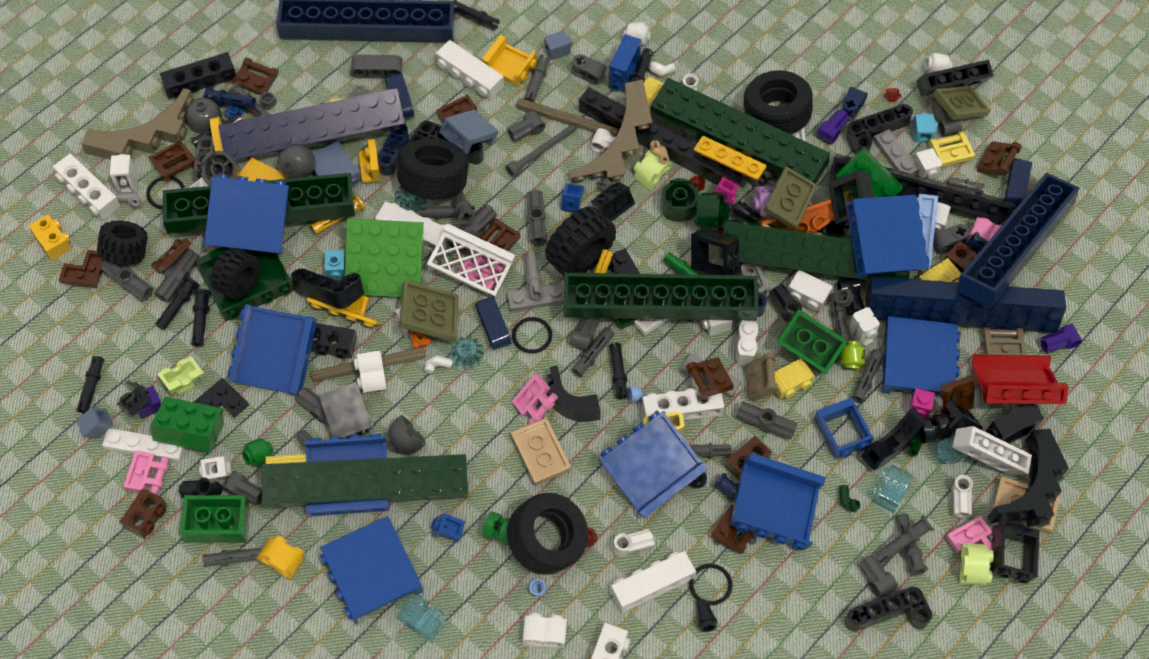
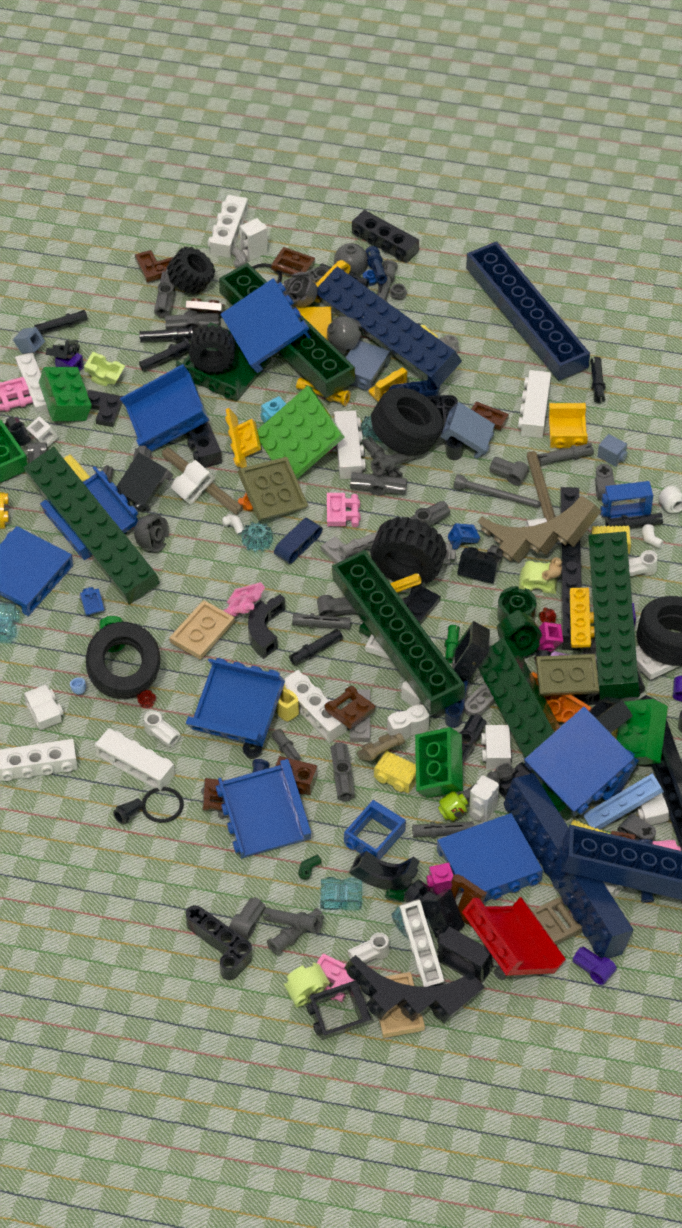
camera: 60 degrees right, 10 degrees down
(50, 237) = (168, 230): yellow brick -> none
(145, 137) = (301, 236): dark tan arch -> none
(252, 81) = (409, 272): reddish brown plate -> none
(256, 451) = (74, 447): green head -> none
(327, 290) = (242, 420): black beam -> none
(375, 66) = (488, 342): dark grey beam -> none
(398, 81) = (470, 371): dark blue beam -> none
(479, 246) = (356, 494): white fence -> none
(505, 237) = (379, 505): reddish brown plate -> none
(532, 350) = (313, 587): black tyre -> none
(634, 394) = (302, 666): light blue hinge -> none

